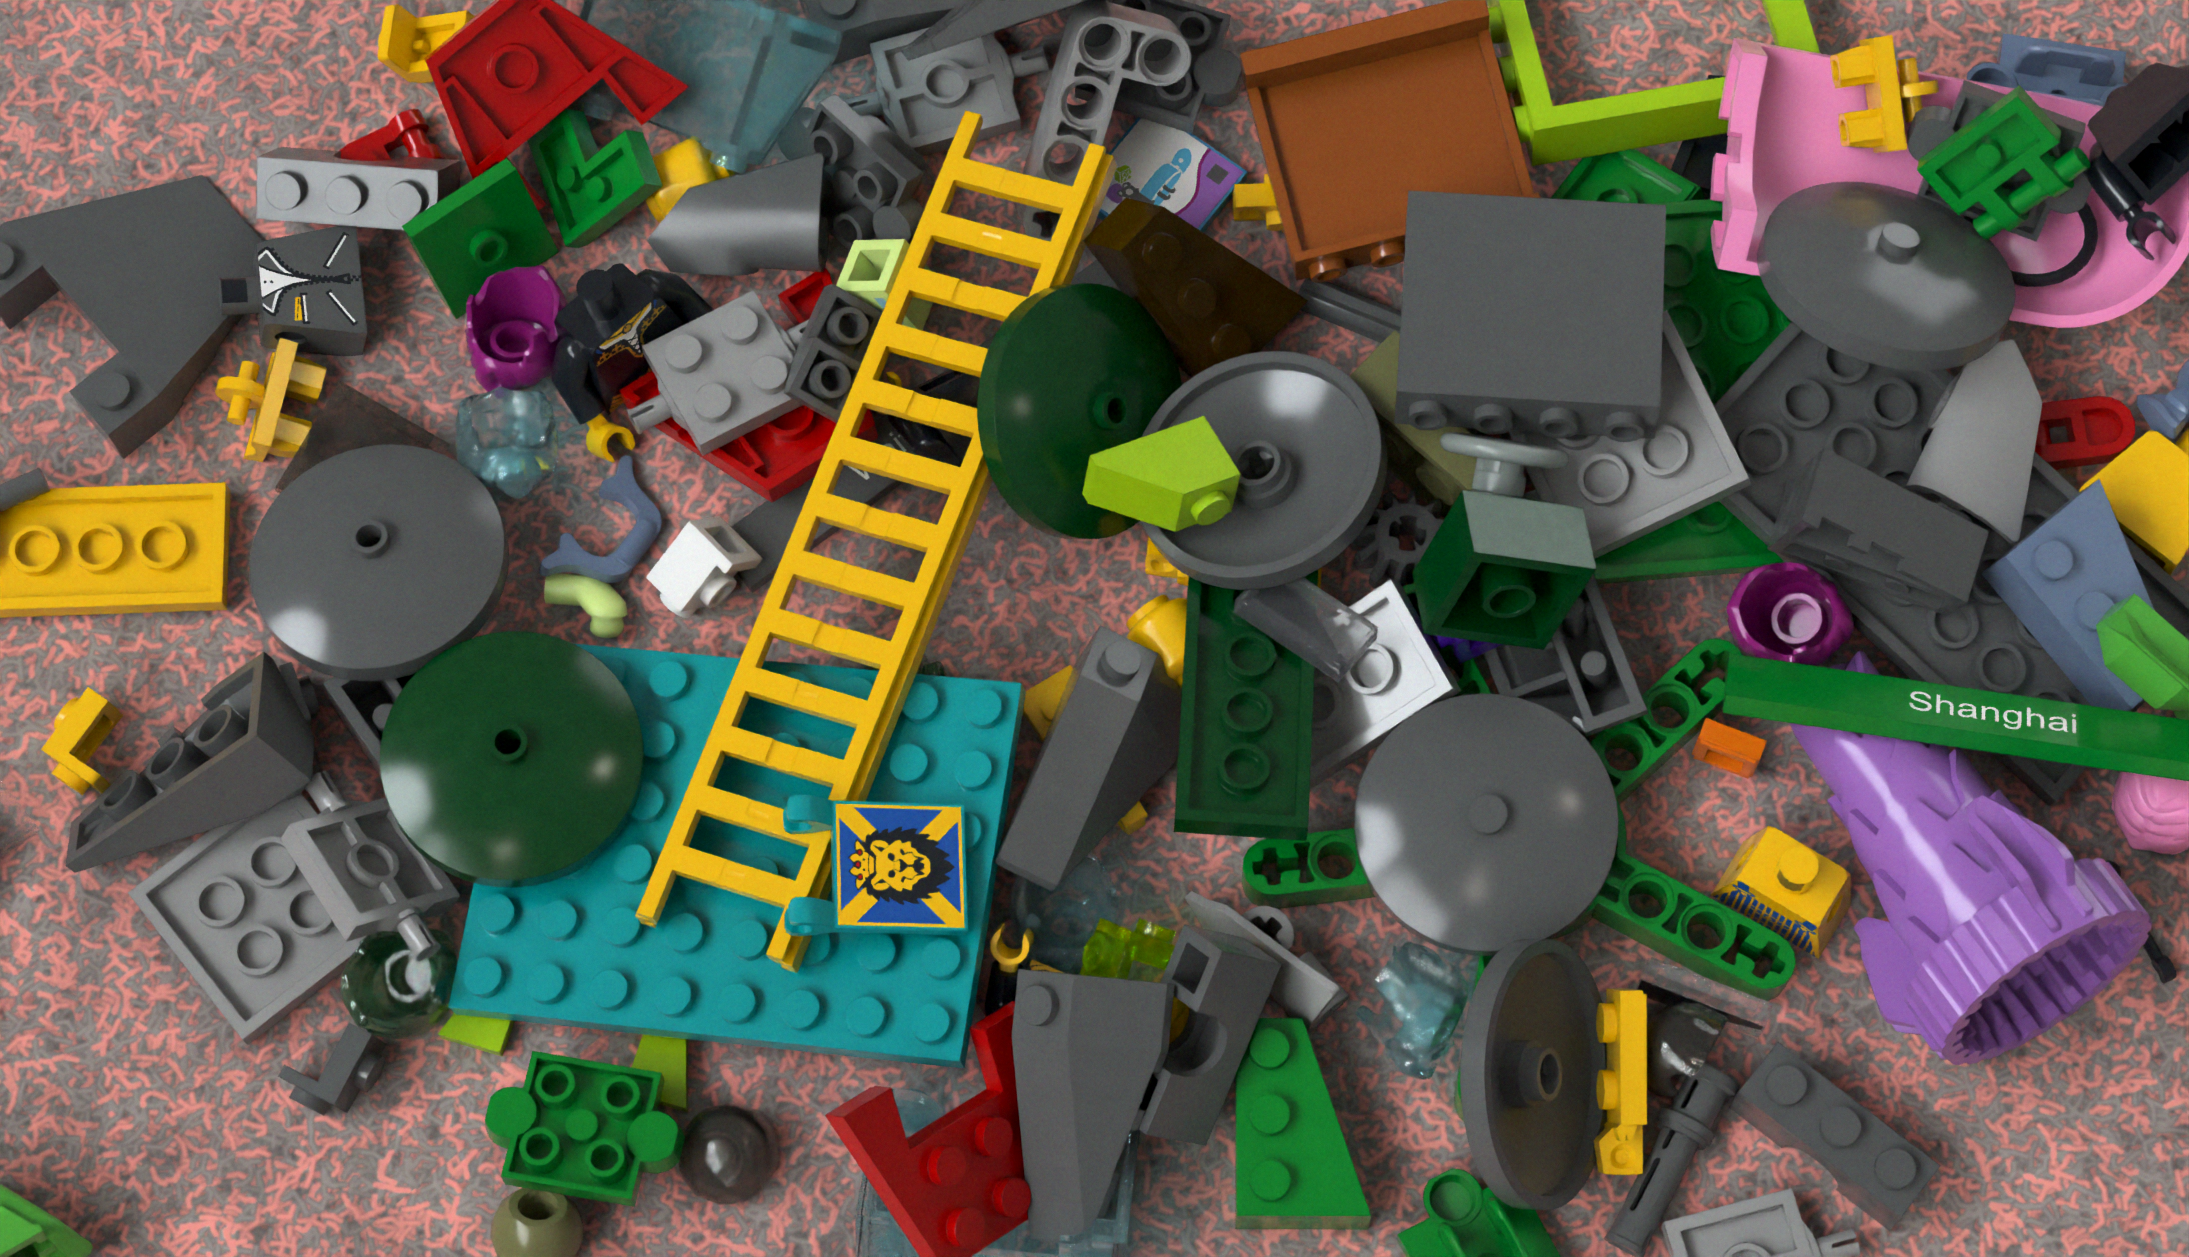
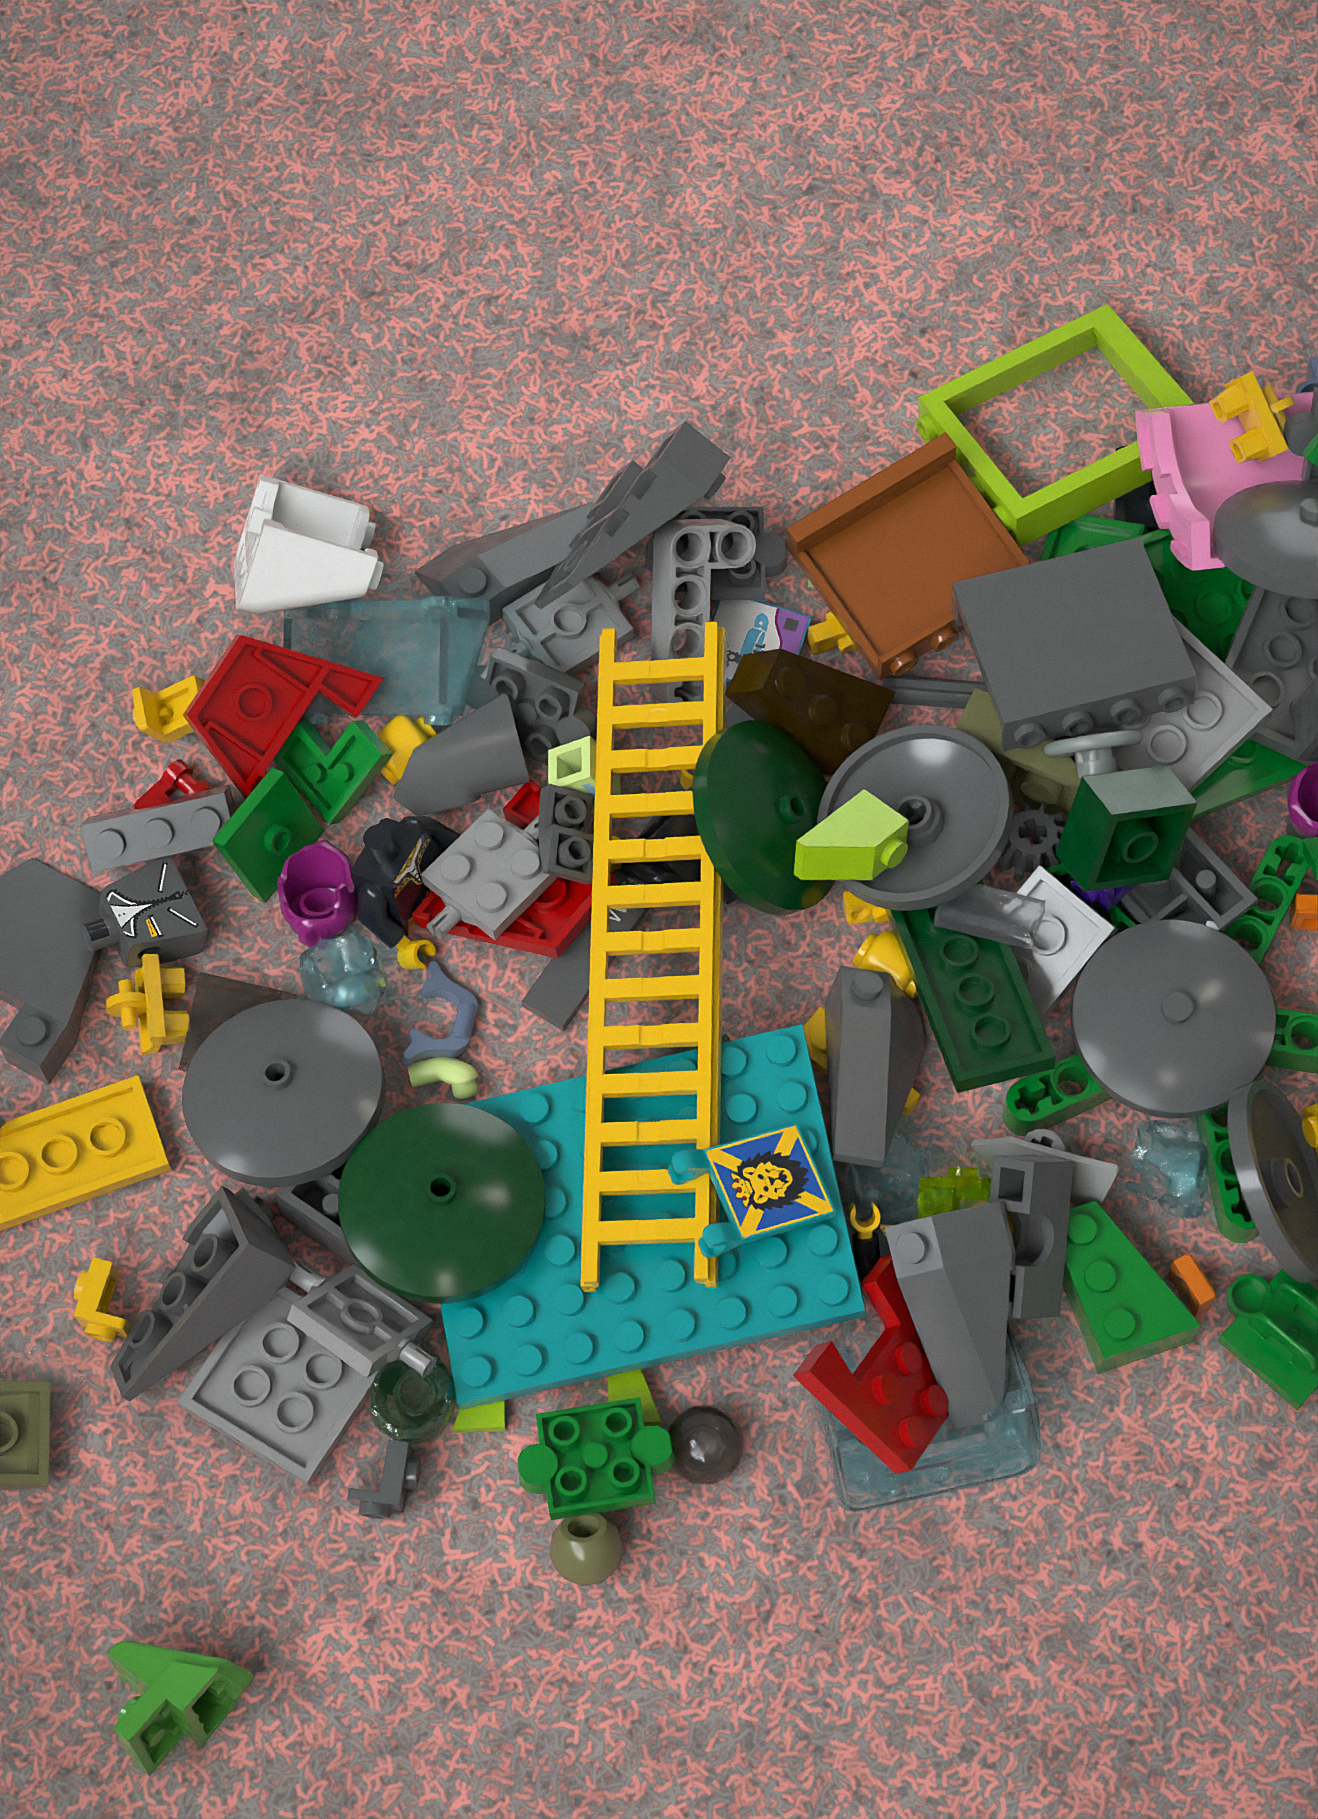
camera: 20 degrees left, 5 degrees down
(701, 566) = (523, 1021): white brick -> none
(1388, 1160) = (1192, 1284): none -> orange tile

